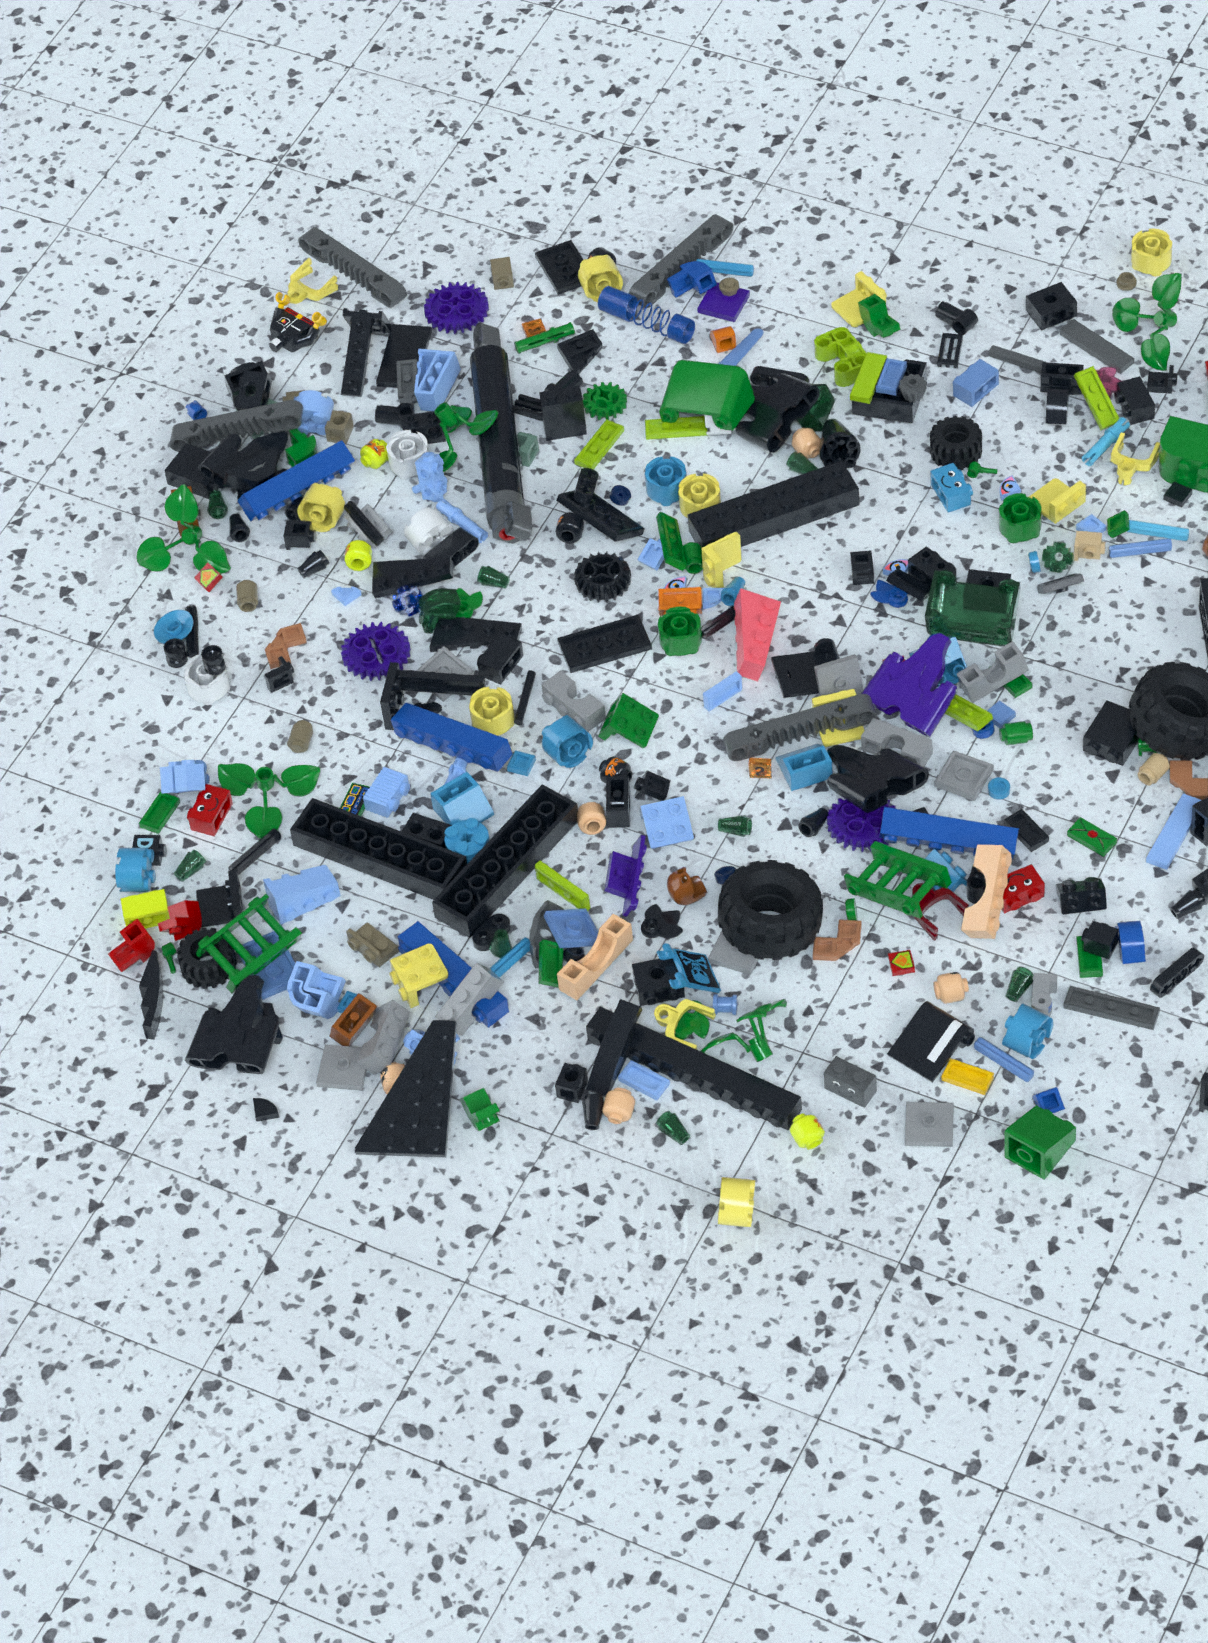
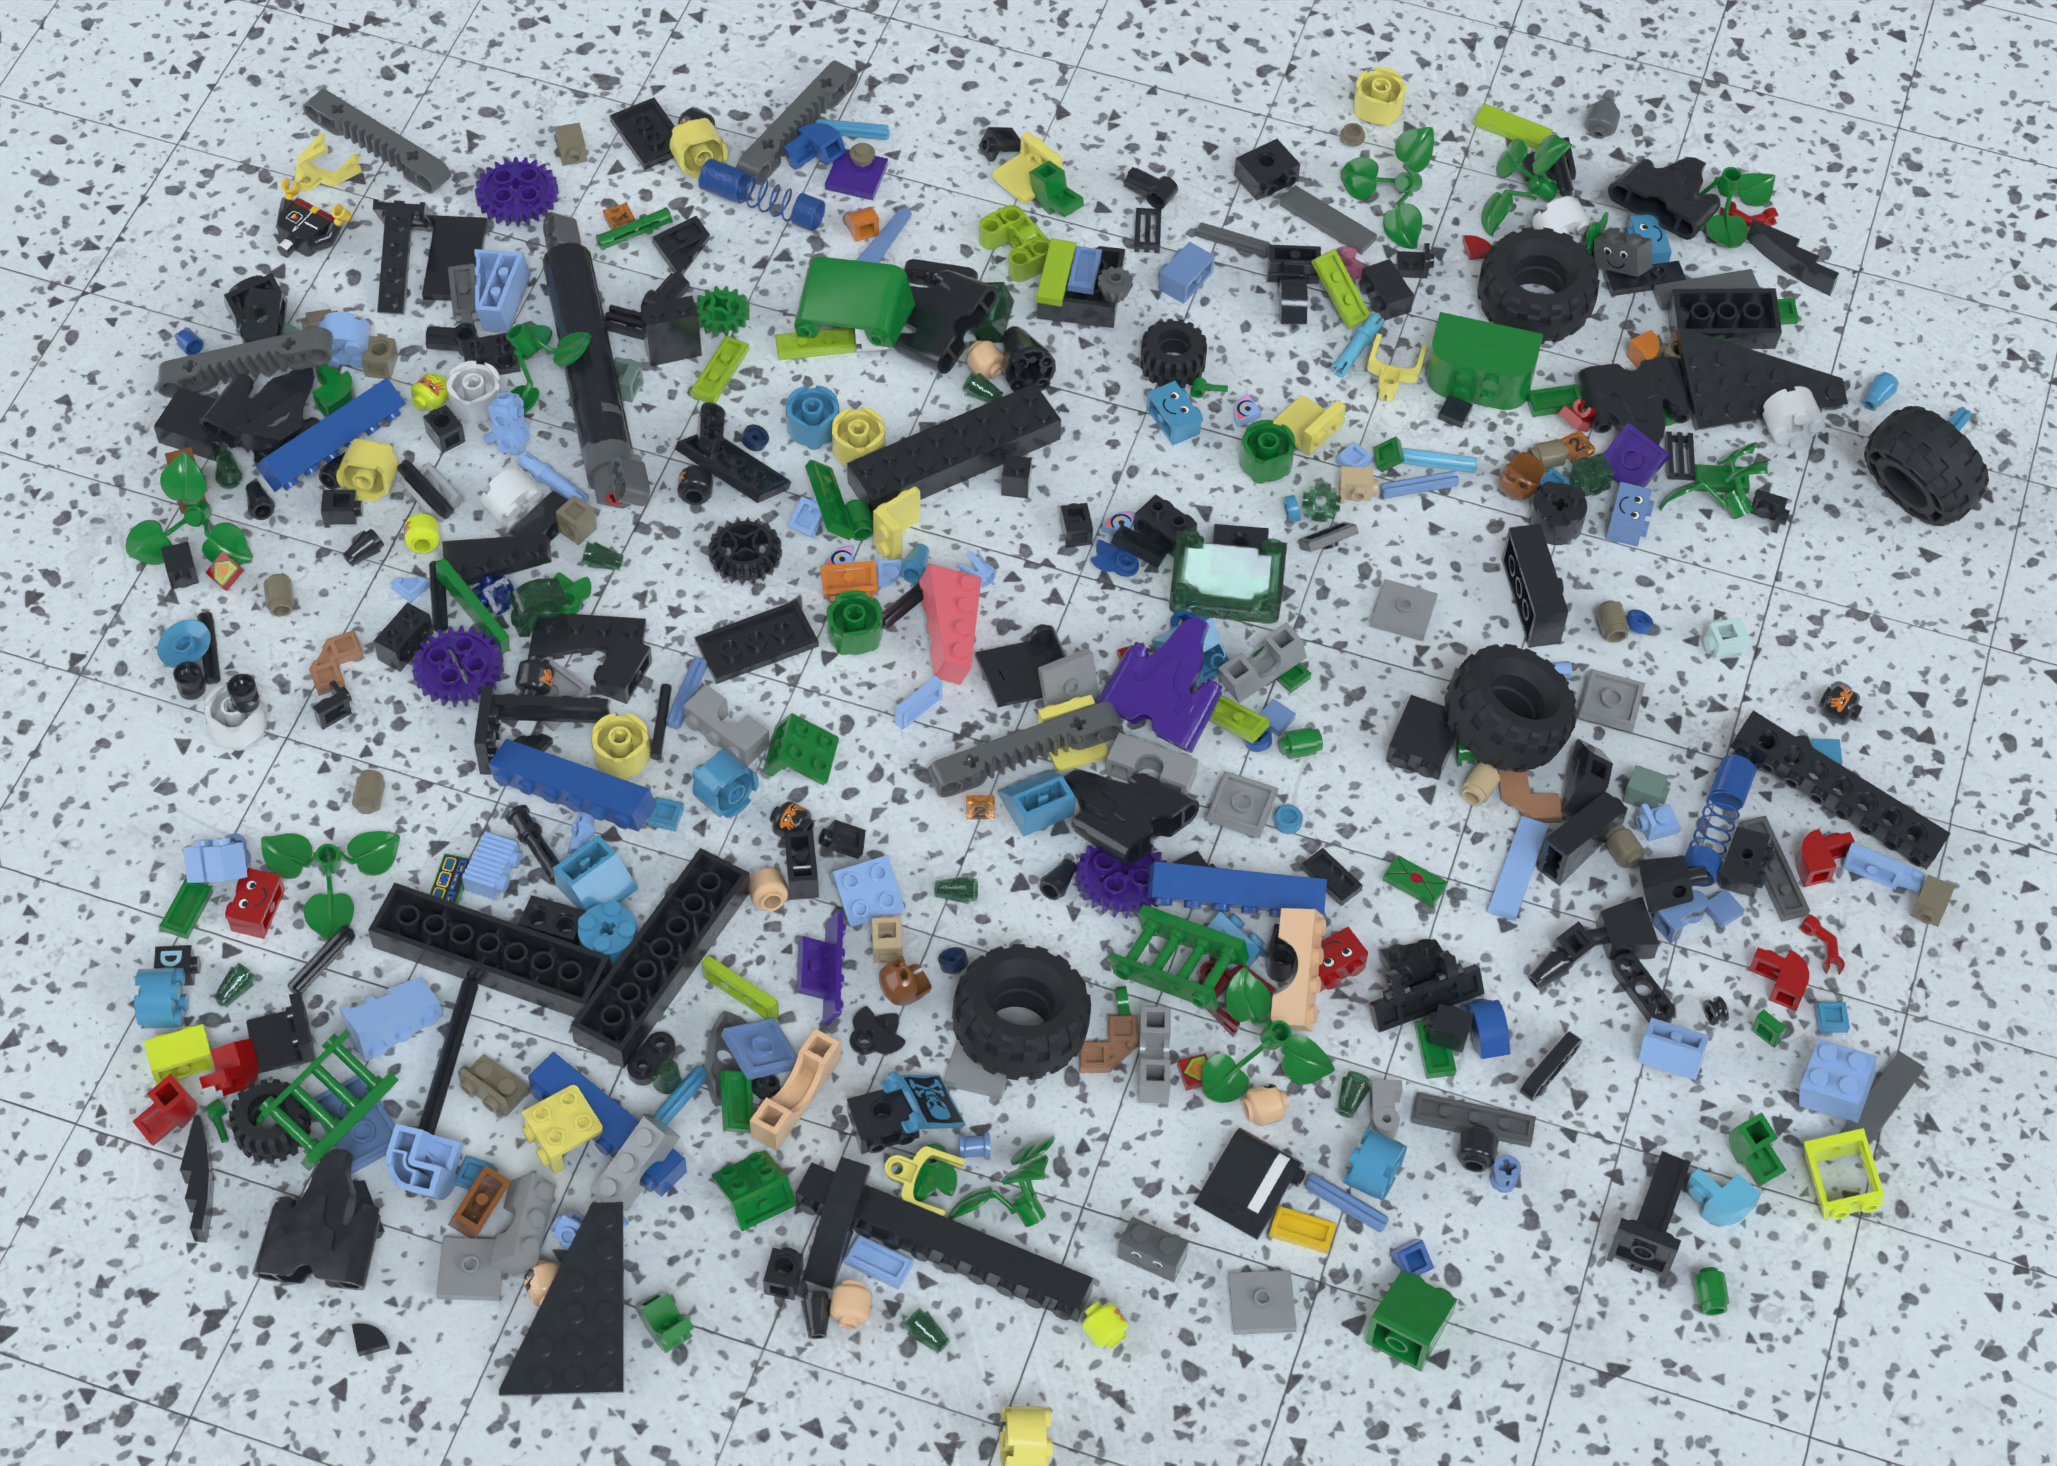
camera: 15 degrees left, 5 degrees up
(175, 571) = (180, 565): none -> black brick
(336, 627) = (403, 636): none -> black brick
(342, 920) = (448, 1056): none -> black axle
(366, 601) = (438, 600): none -> black axle
(382, 480) = (444, 428): none -> black brick
(390, 607) = (471, 604): none -> green tile
(417, 772) = (530, 834): none -> black pin
(431, 658) = (534, 676): none -> black head
(475, 549) = (576, 520): none -> dark tan brick
(550, 670) = (687, 690): none -> medium blue axle
(557, 1025) = (755, 1189): none -> green bracket
(676, 856) = (886, 938): none -> tan brick
(786, 599) = (982, 569): none -> light blue piece
(819, 530) = (1016, 476): none -> black brick
(839, 278) = (997, 140): none -> black bracket
(870, 947) = (1154, 1054): none -> light grey arch
(949, 912) = (1250, 999): none -> green plant
(1069, 922) = (1406, 1003): none -> black hinge
(1109, 1026) = (1477, 1148): none -> black head
(1113, 640) = (1403, 610): none -> light grey plate
(1123, 1050) = (1509, 1172): none -> medium blue bush

